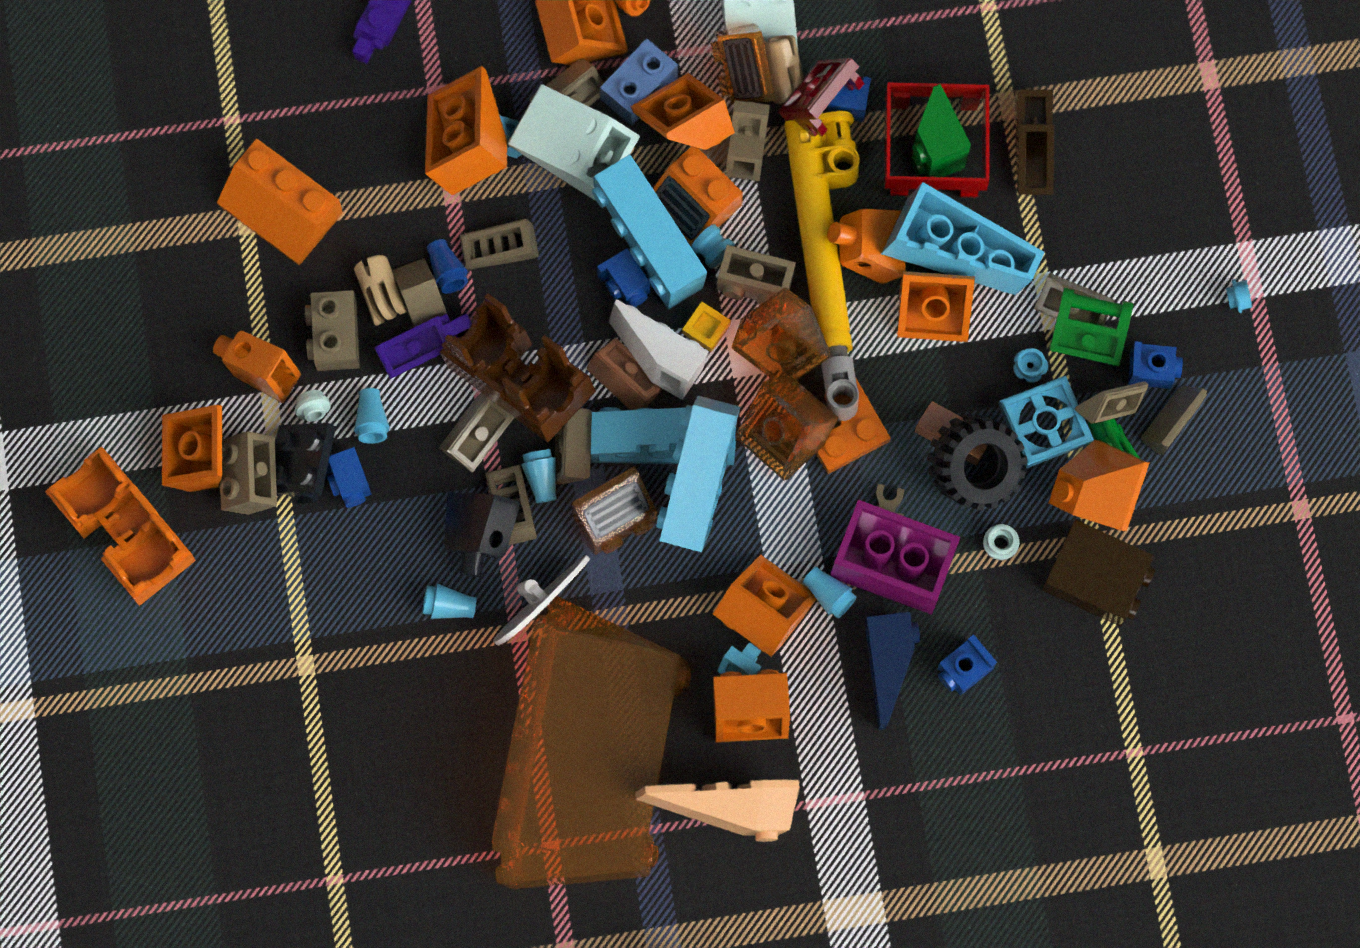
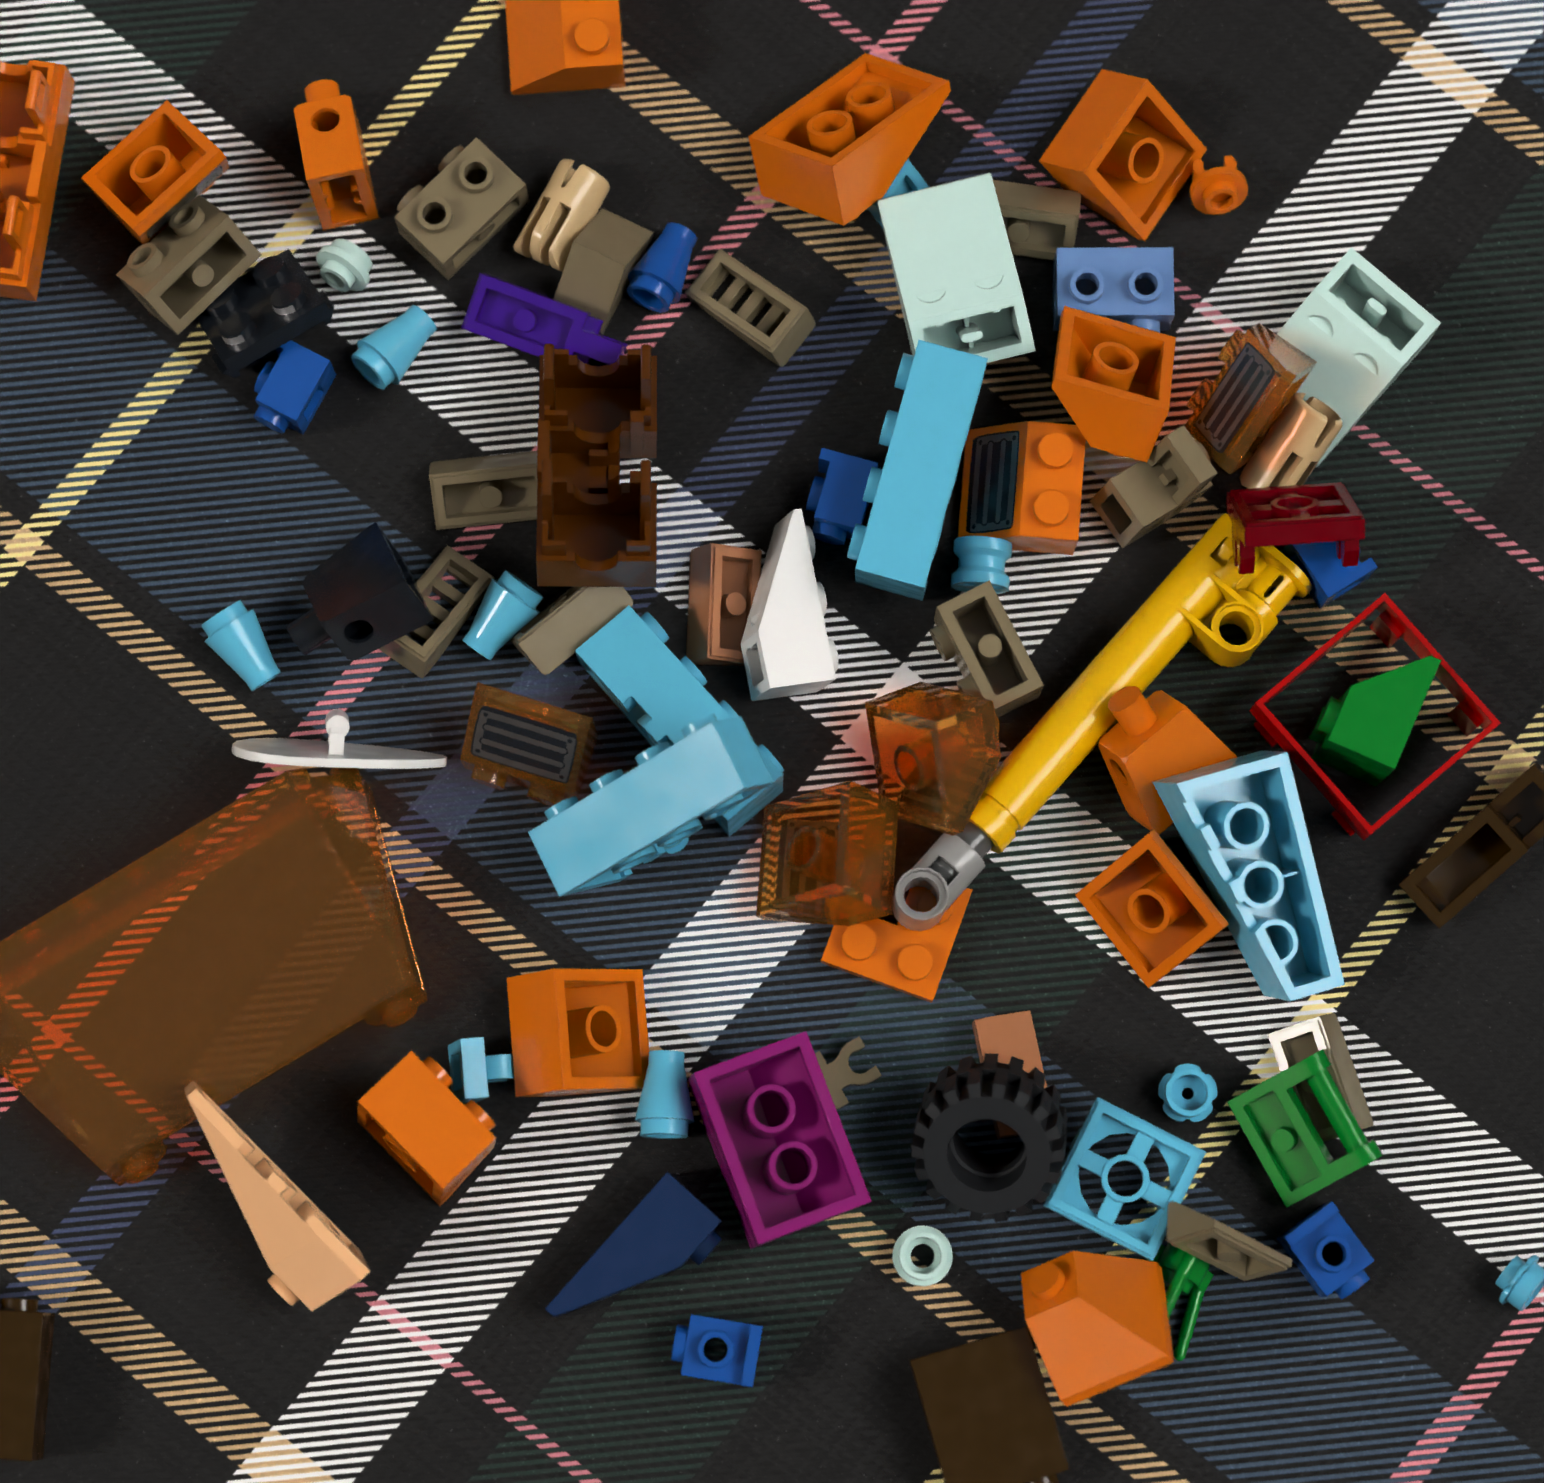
camera: 50 degrees right, 5 degrees up
(706, 326) = (871, 648): yellow plate -> none
(1173, 418) = (1281, 1335): dark tan slope -> none

